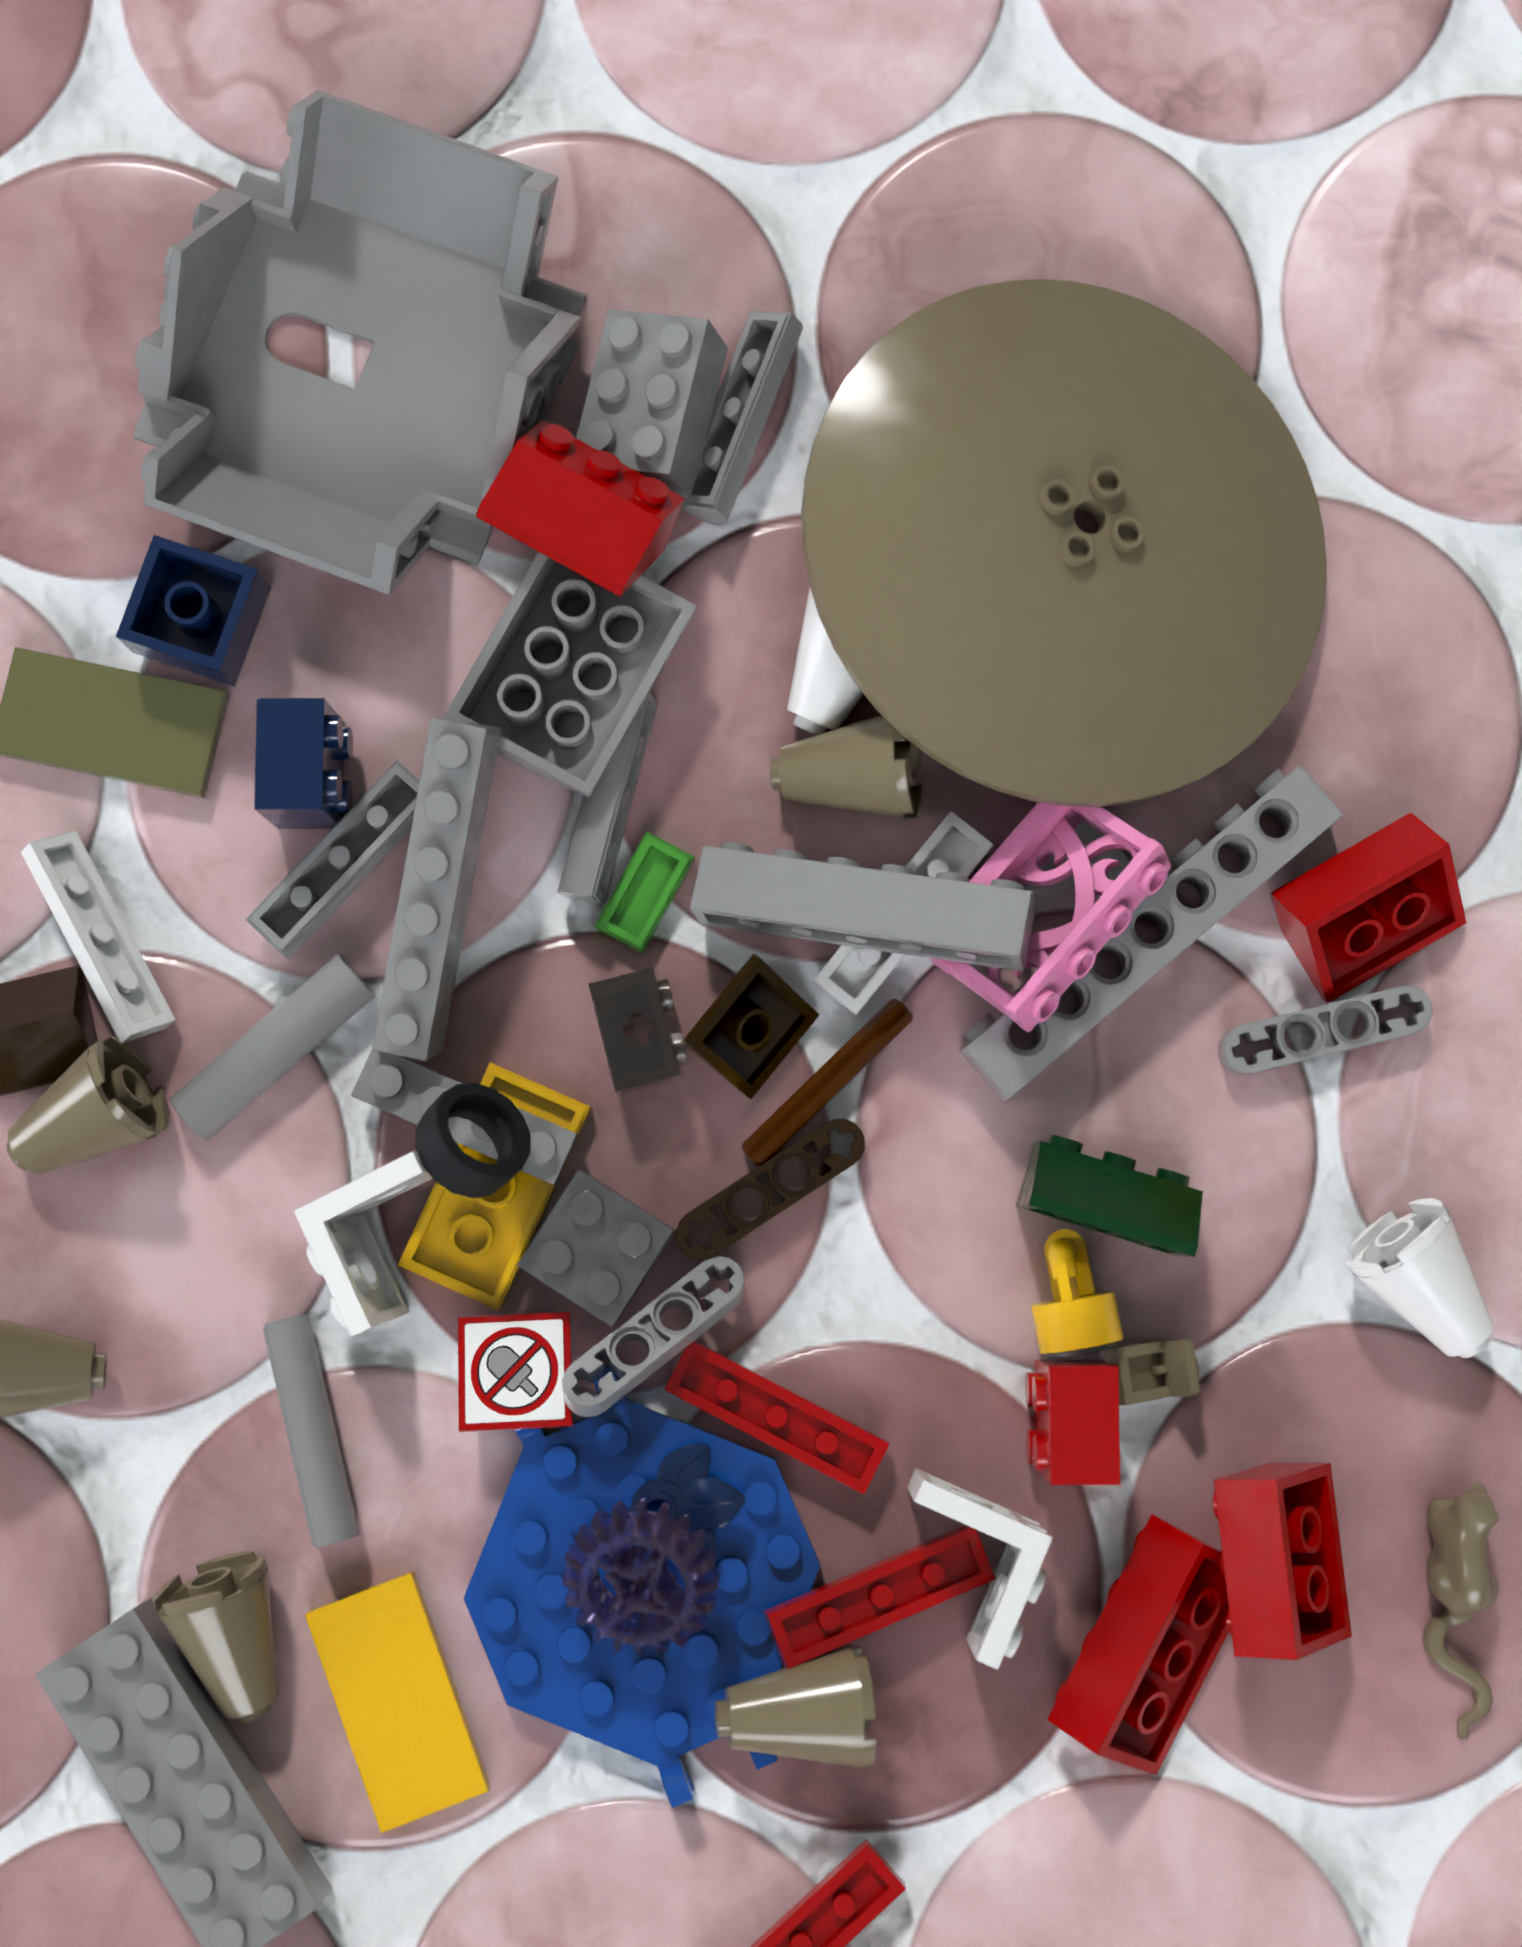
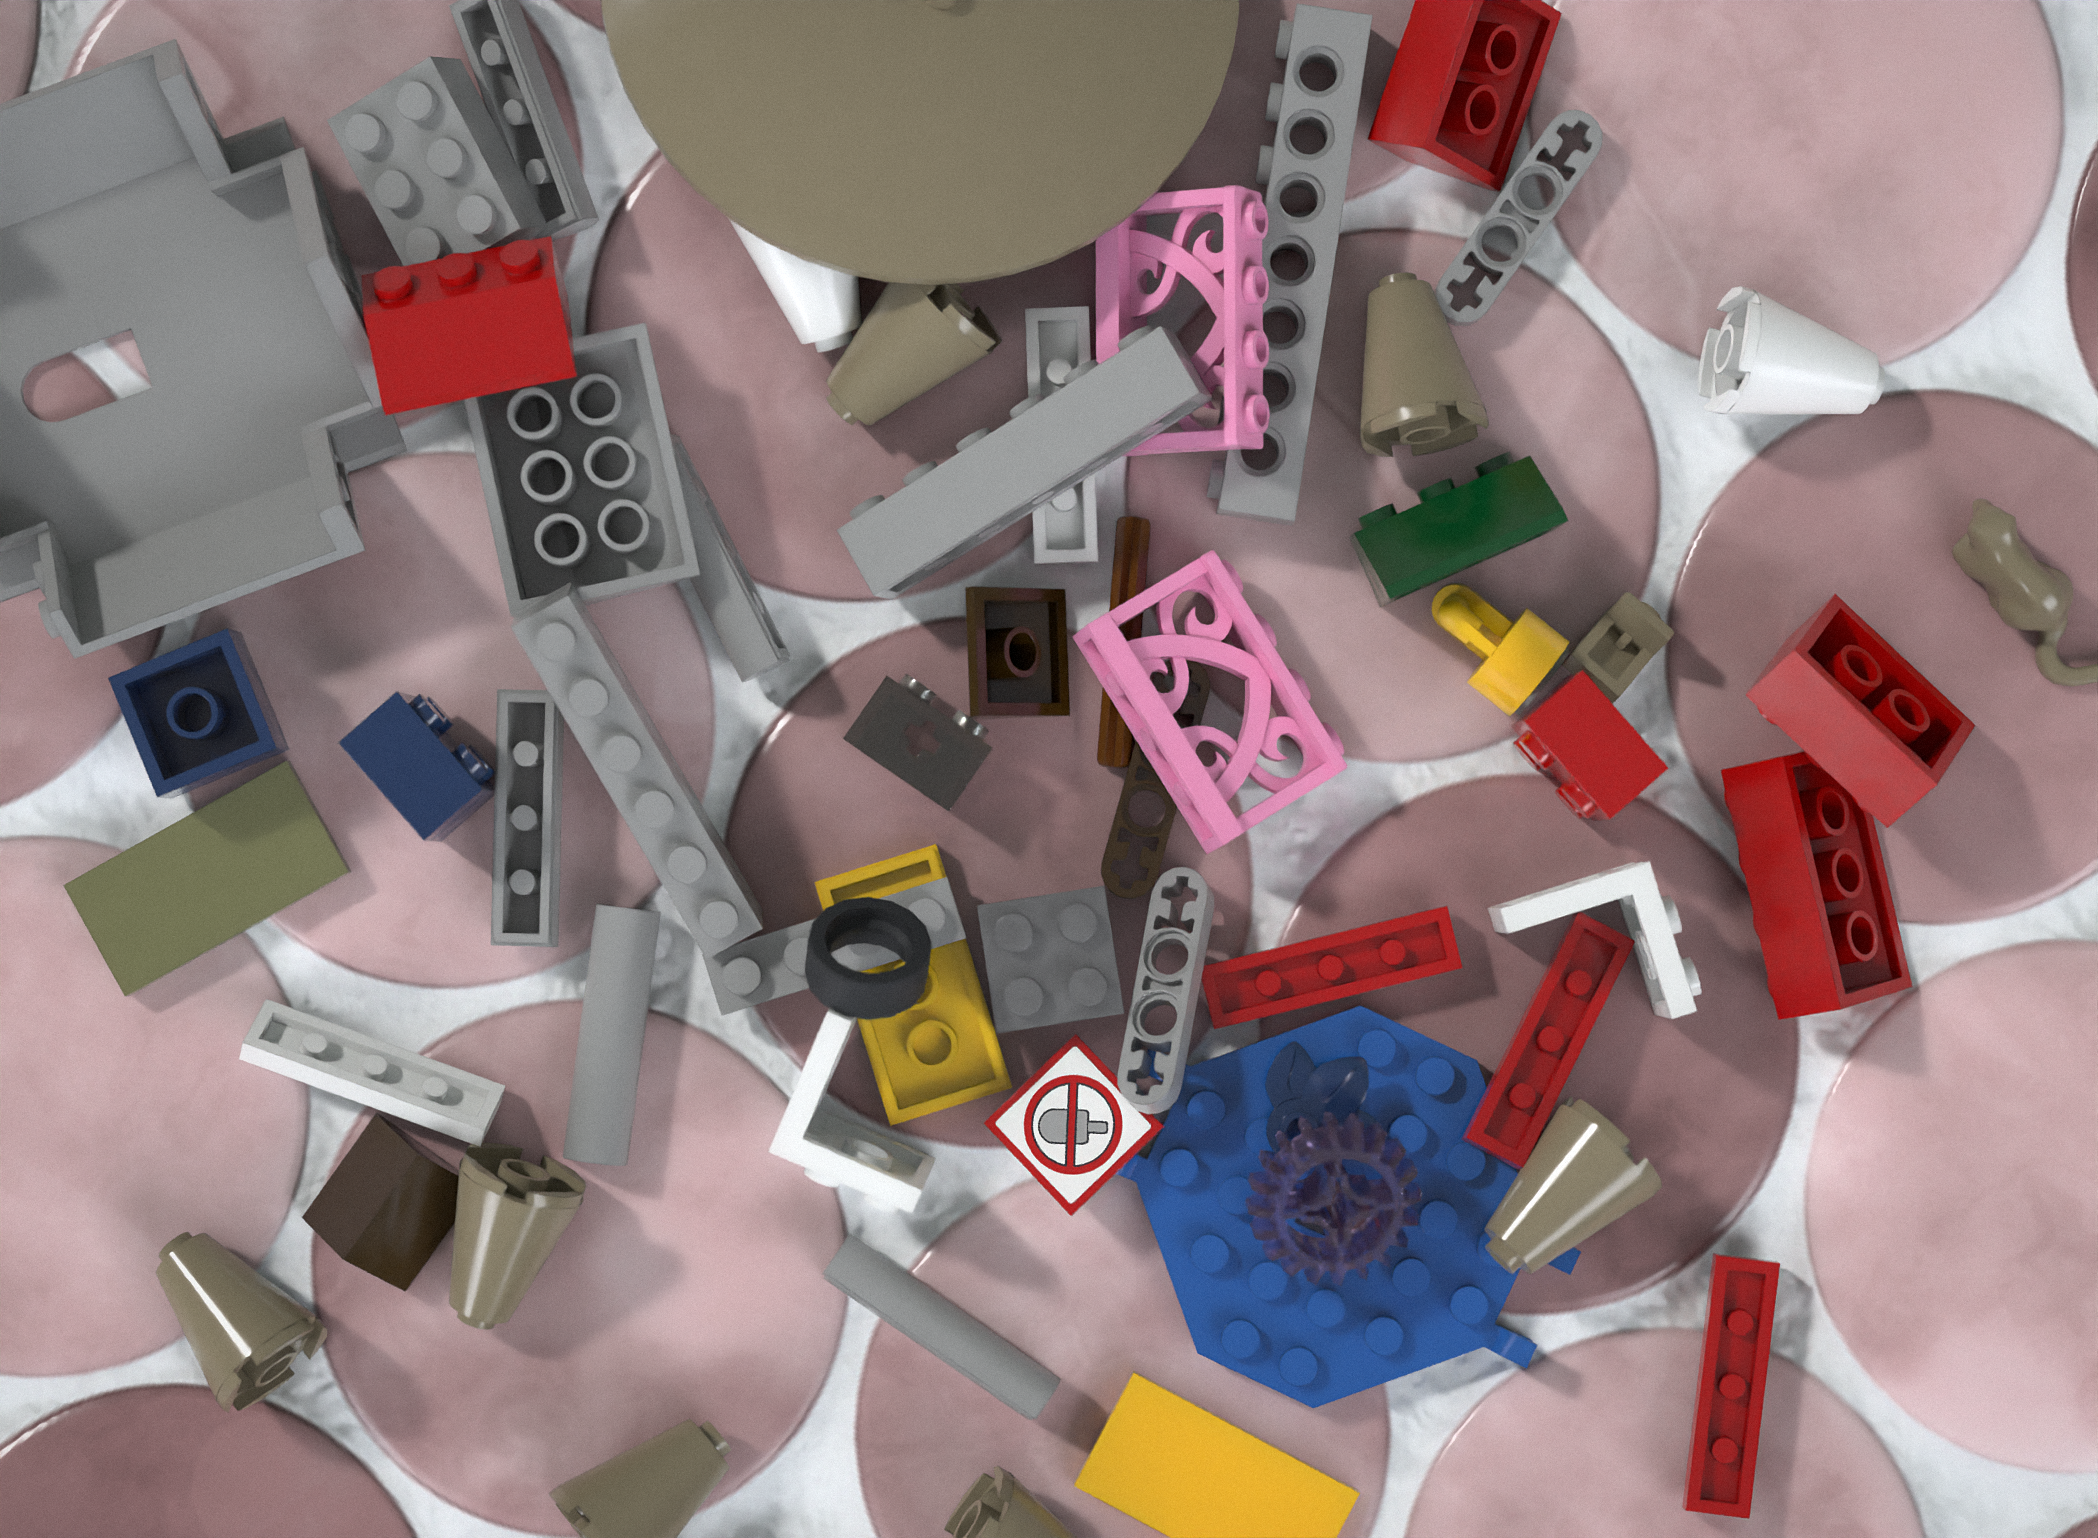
camera: 40 degrees left, 5 degrees up
(644, 892) = (817, 615): bright green tile -> none
(789, 1218) = (1125, 674): none -> bright pink fence
(1170, 1073) = (1414, 374): none -> dark tan cone

